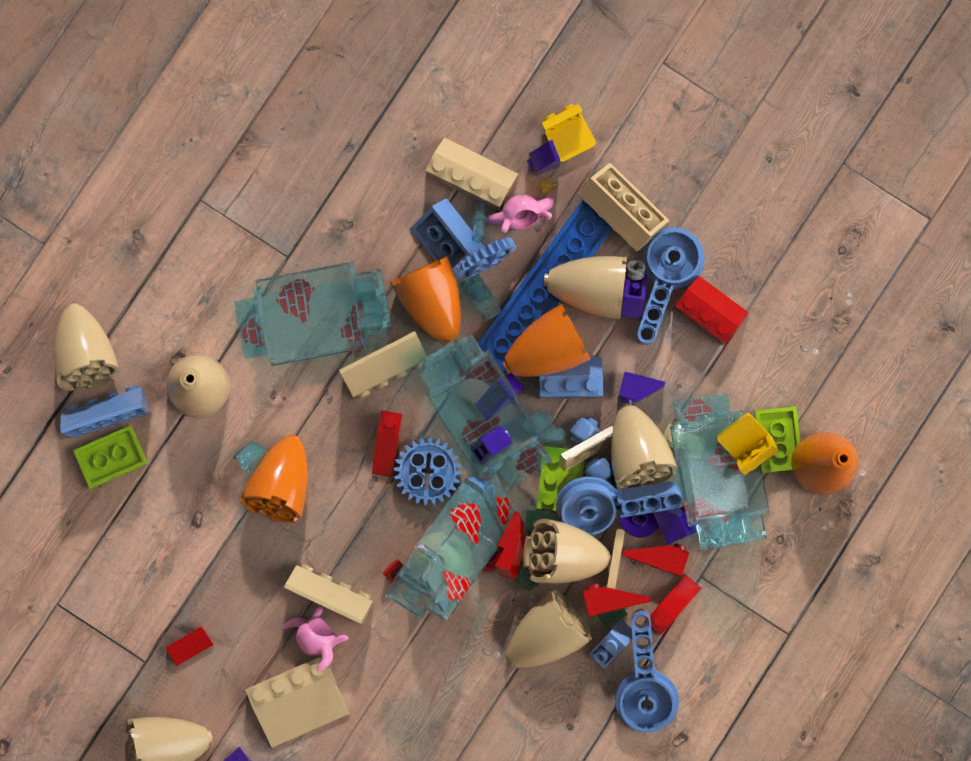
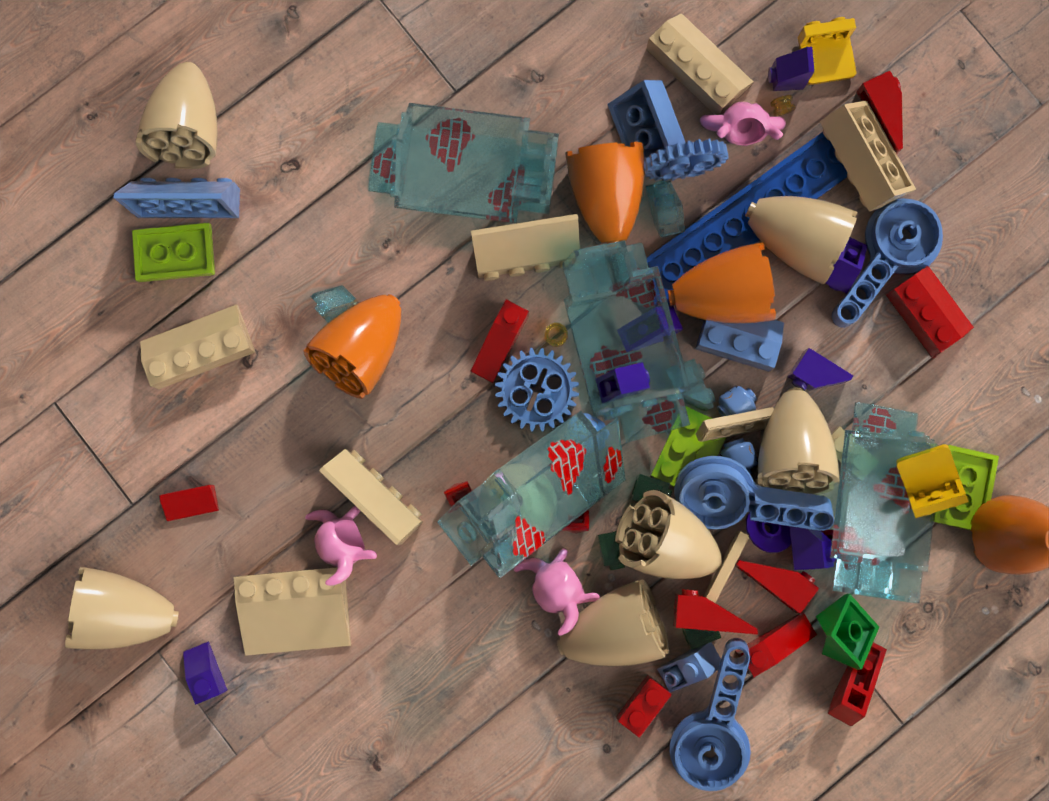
camera: 15 degrees right, 0 degrees up
(153, 524) = (195, 347): none -> tan slope
(198, 386) = (301, 202): tan cylinder -> none
(428, 417) = (553, 342): none -> clear yellow bush
(479, 221) = (692, 119): clear light blue pin -> none
(492, 617) = (557, 588): none -> bright pink piece
(511, 548) = (607, 513): red slope -> none
(586, 684) = (643, 706): none -> red brick
(624, 159) = (886, 102): none -> red slope
(635, 270) = (859, 235): light grey bush -> none
(722, 577) = (847, 632): none -> green slope
(742, 613) = (856, 688): none -> red slope

